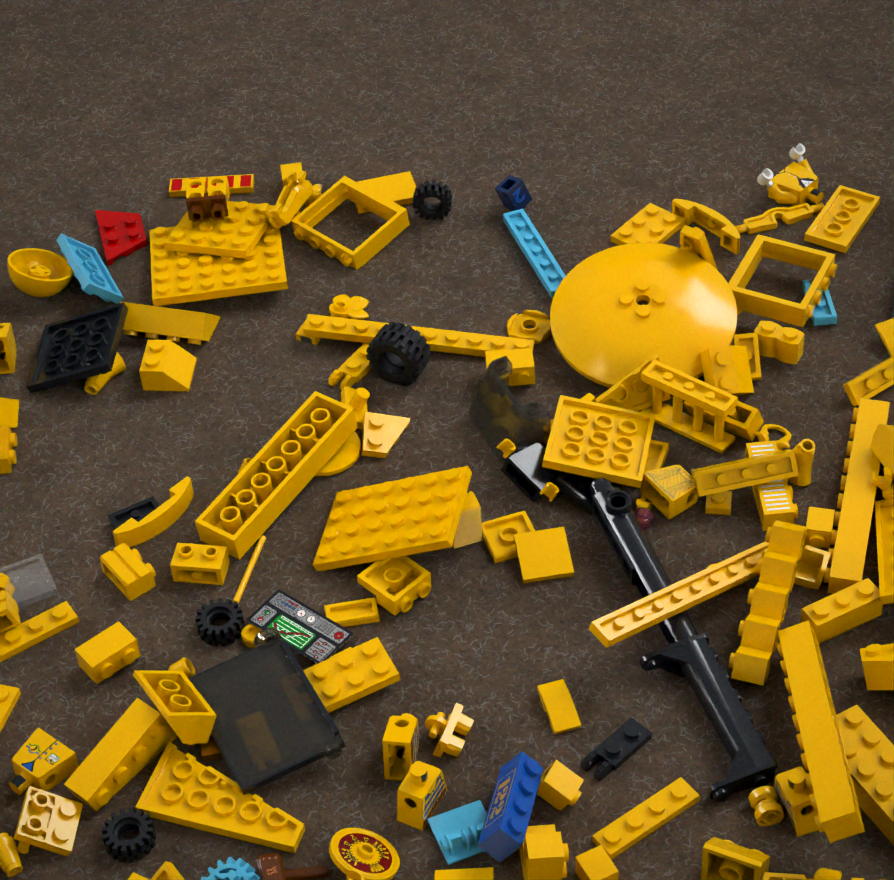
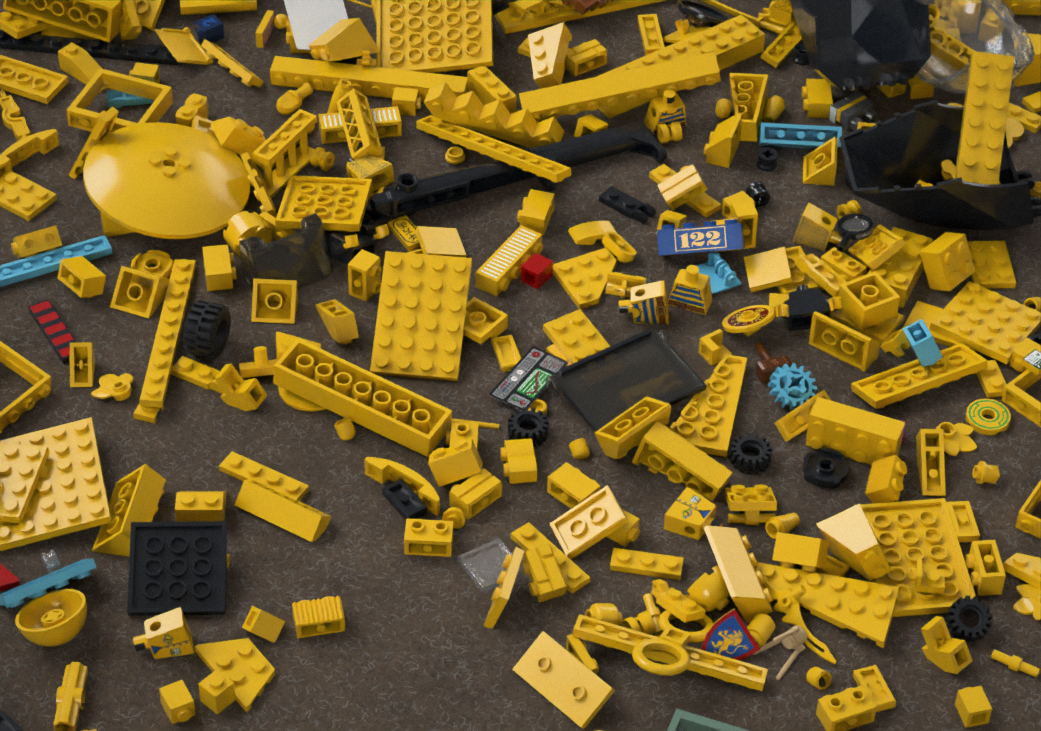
camera: 100 degrees left, 0 degrees up
(44, 695) = (627, 532): none -> yellow brick
(48, 659) = (588, 522): none -> yellow tile
(75, 532) = (428, 537): none -> yellow brick
(96, 552) = (456, 515): none -> yellow plate
(120, 271) = (50, 560): none -> clear bush
(147, 425) = (282, 510): none -> yellow brick
(162, 546) = (455, 462): none -> yellow brick
(168, 611) = (520, 461): none -> yellow brick
(198, 415) = (245, 468): none -> yellow plate
(320, 380) = (238, 392): none -> yellow brick
(320, 815) = (712, 348): none -> yellow panel
(375, 281) = (82, 364): none -> yellow slope
(411, 461) = (338, 321): none -> yellow slope
(436, 265) = (53, 328): none -> tile
(452, 415) = (274, 301): none -> yellow slope
(482, 692) = (585, 276): none -> yellow plate
(483, 475) = (364, 275): none -> yellow brick
(484, 642) = (536, 270): none -> red brick
(485, 313) = (138, 292): none -> yellow slope
(503, 271) = (81, 277): none -> yellow brick
(506, 616) = (507, 261): none -> yellow brick
(523, 729) = (619, 247): none -> yellow plate
(551, 381) = (245, 226): none -> yellow brick
(560, 240) = (36, 242): none -> yellow brick
(577, 526) = (405, 232): none -> yellow tile
(584, 648) = (536, 210): none -> yellow brick
(629, 799) = (682, 186): none -> yellow brick
(703, 452) = (322, 159): none -> yellow wheel
(767, 711) = (588, 125): none -> yellow panel
(818, 427) = (293, 99): none -> yellow arm
(851, 305) = (146, 72): none -> yellow brick
(865, 257) = (78, 63): none -> yellow slope

